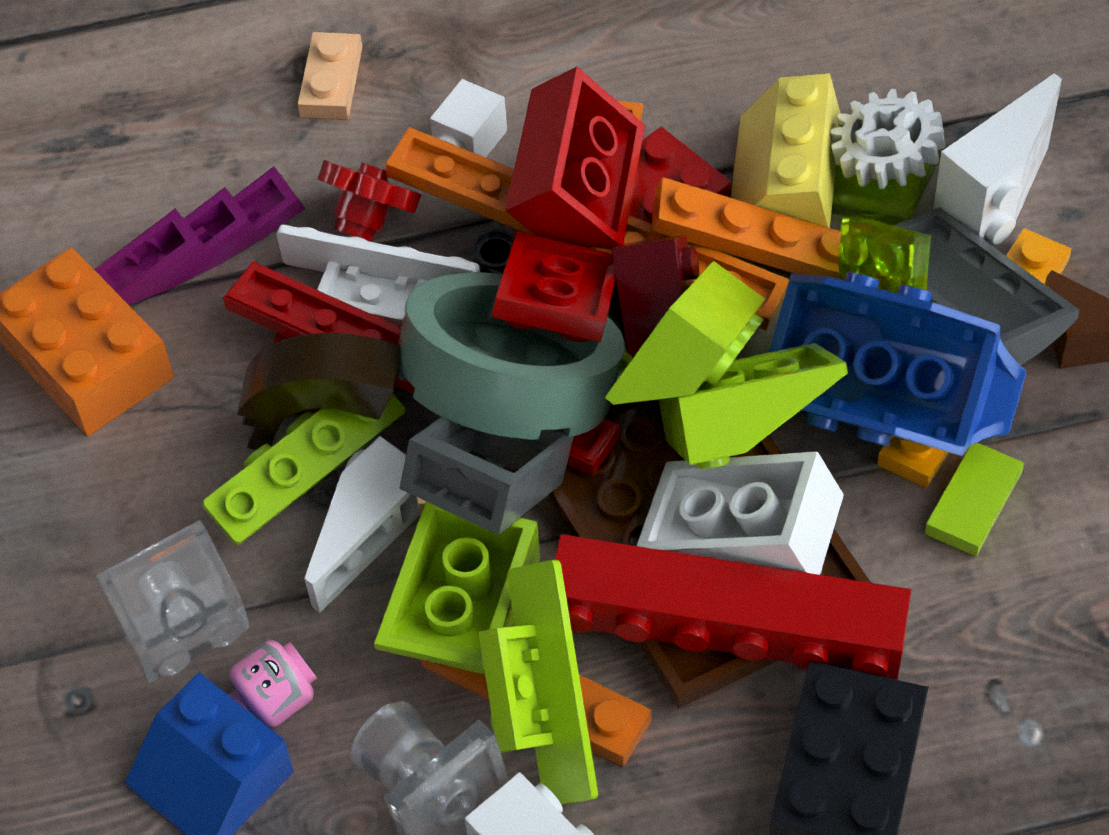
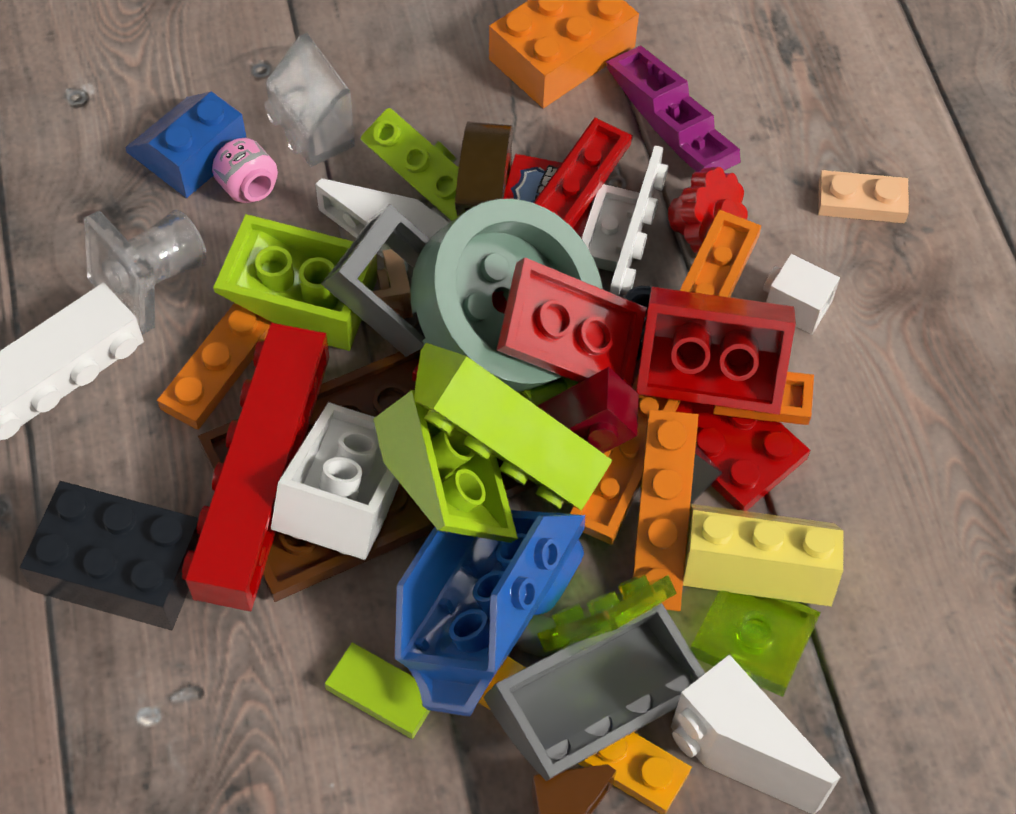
camera: 85 degrees right, 5 degrees up
(538, 685) = (199, 314): lime bracket -> none
(883, 138) = (775, 628): white gear -> none

